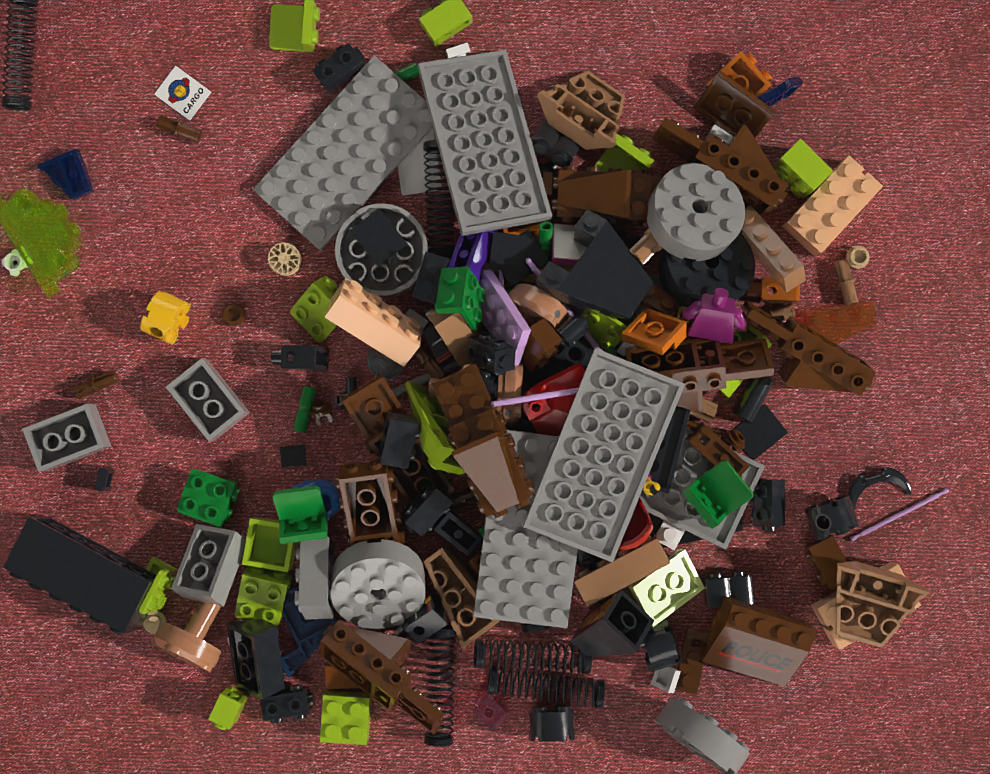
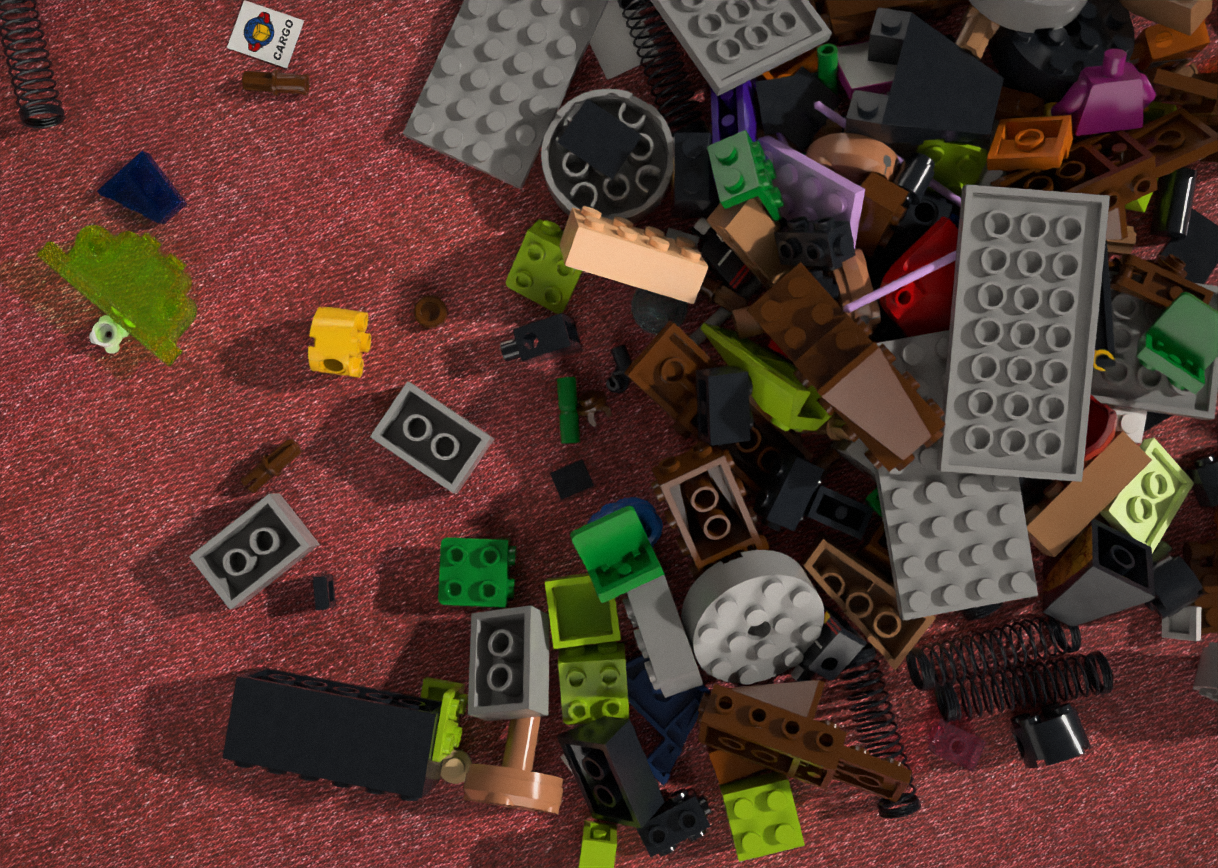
camera: 10 degrees left, 0 degrees up
(285, 259) = (476, 213): tan wheel -> none

